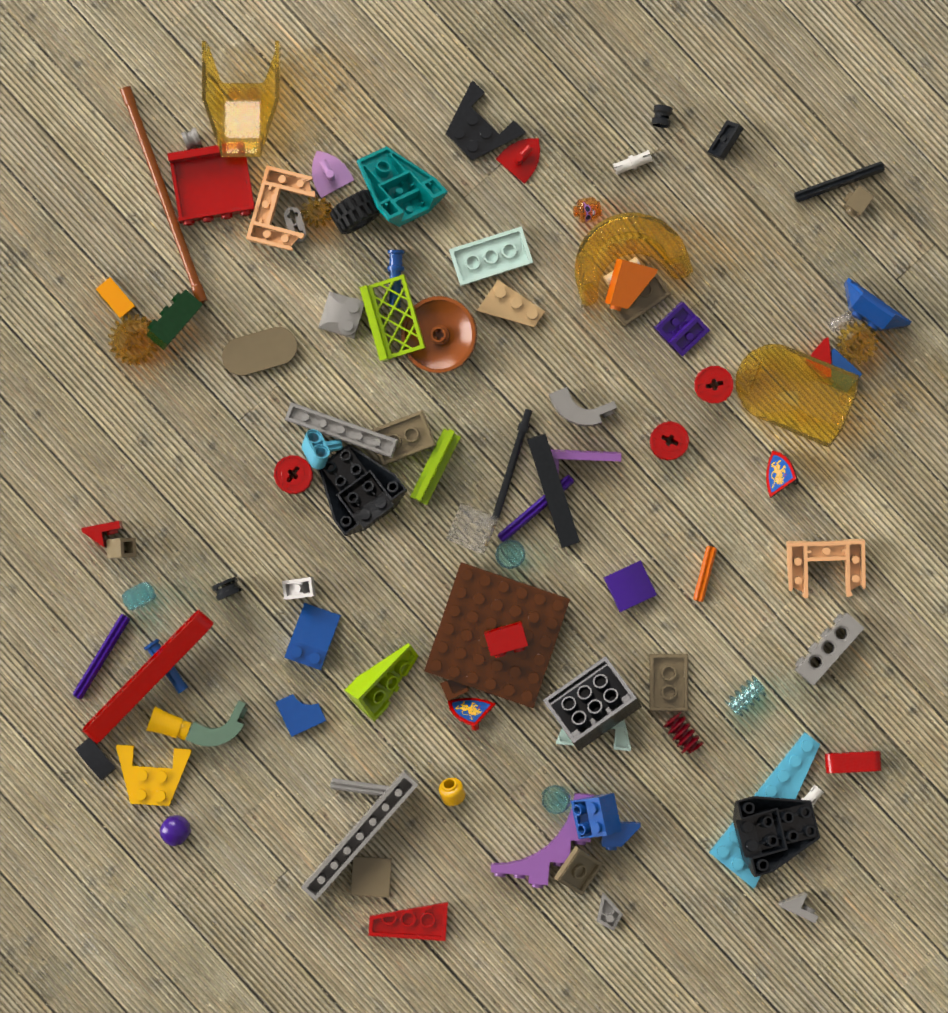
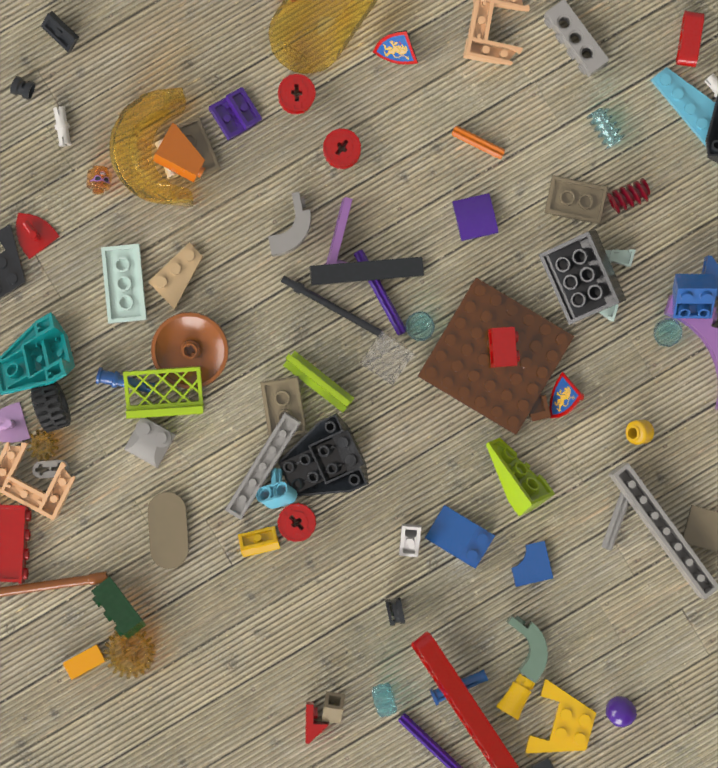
camera: 75 degrees left, 0 degrees up
(267, 441) = (258, 541): none -> yellow slope

